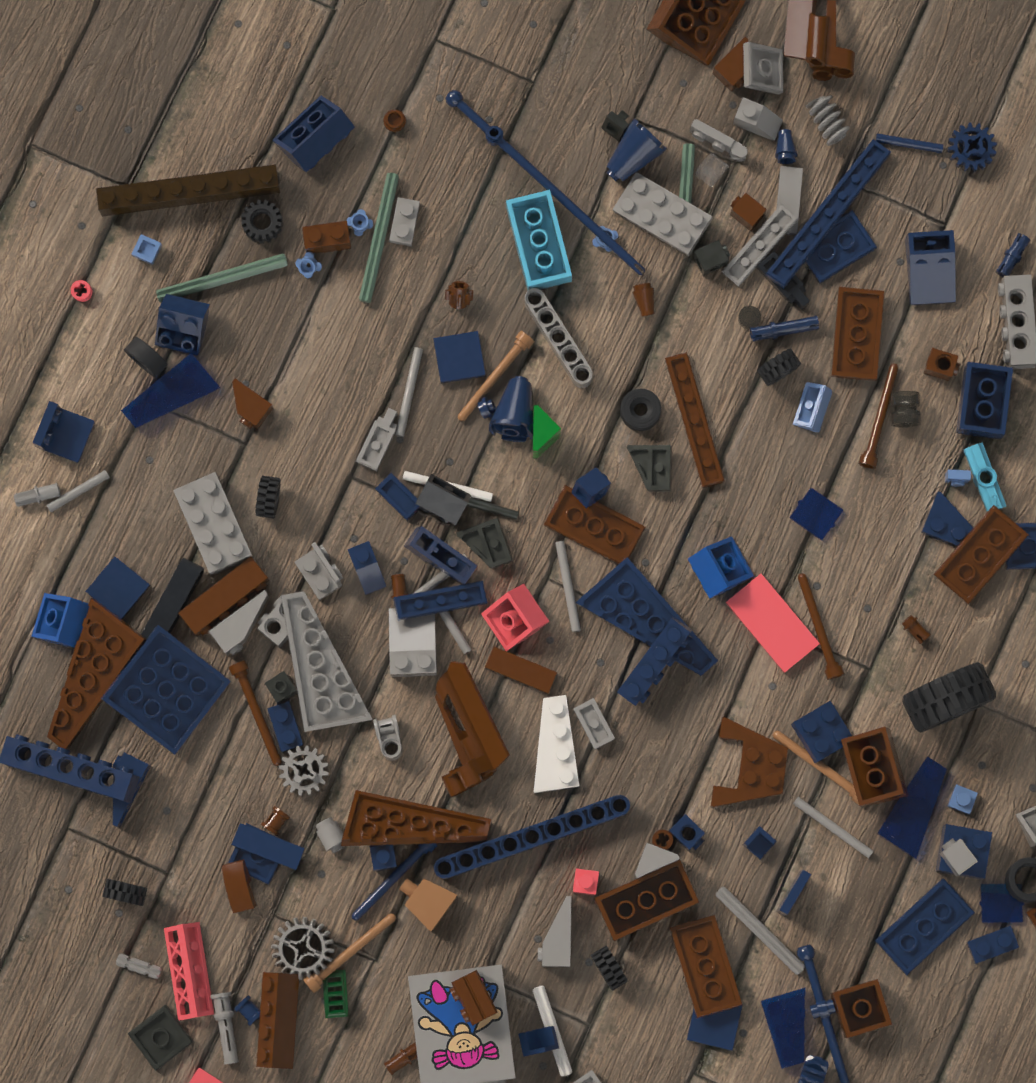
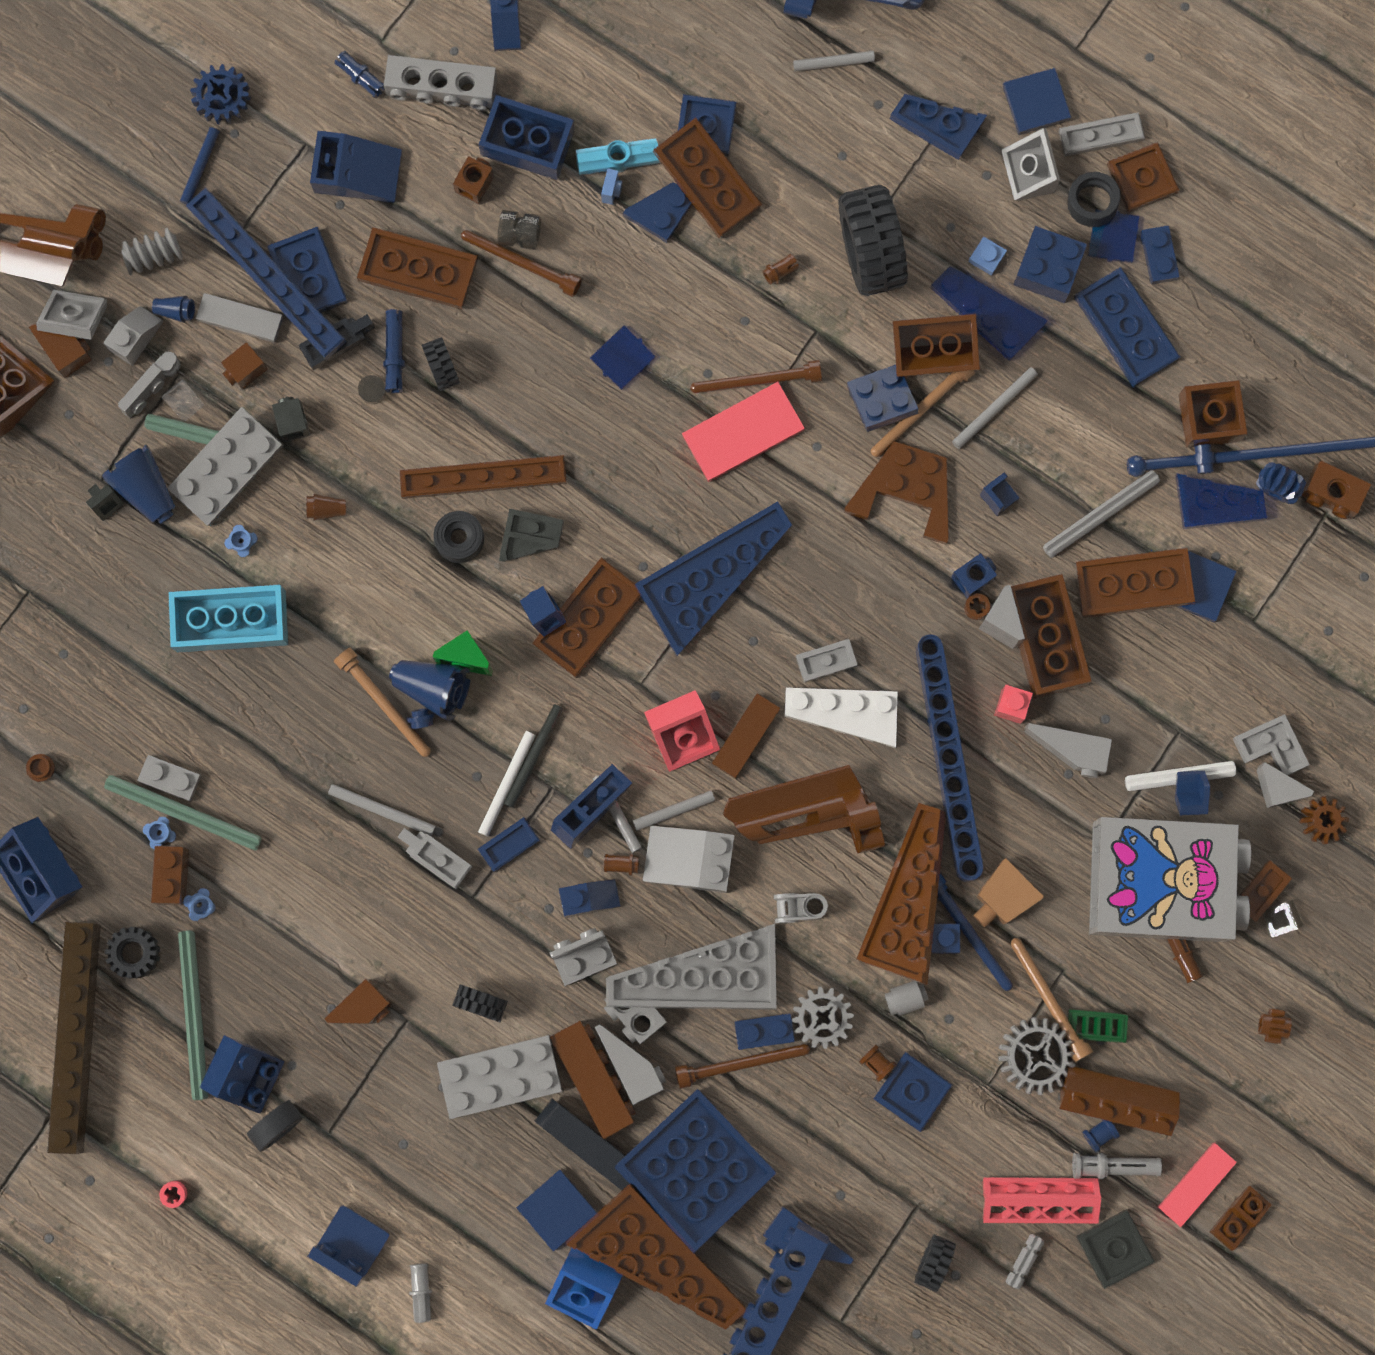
camera: 80 degrees left, 0 degrees up
(79, 490) = (425, 1240): light grey bar -> none
(146, 249) = (137, 1103): medium blue plate -> none
(173, 390) = (322, 1097): clear blue wing -> none
(237, 886) = (949, 1122): reddish brown slope -> none
(268, 846) = (907, 1077): dark blue tile -> none
(281, 687) = (717, 1027): pearl dark grey brick -> none
(440, 600) = (645, 816): dark blue tile -> none
(443, 499) = (524, 790): black brick -> none
(455, 99) = (30, 688): dark blue bar -> none
(459, 295) = (275, 727): reddish brown gear -> none
(459, 357) = (351, 741): dark blue tile -> none
(473, 997) = (1138, 855): reddish brown brick -> none
(488, 542) = (585, 747): pearl dark grey wing -> none
(553, 328) = (338, 615): light grey beam -> none
(568, 587) = (655, 662): light grey bar -> none
(609, 968) = (1120, 694): black tyre -> none
(653, 662) = (766, 573): dark blue brick -> none
(720, 567) = (666, 478): blue slope -> none
(760, 245) = (287, 359): light grey tile -> none
(793, 892) = (1067, 464): dark blue tile -> none
(812, 406) = (494, 337): medium blue slope -> none
(957, 856) = (1060, 266): light grey brick -> none

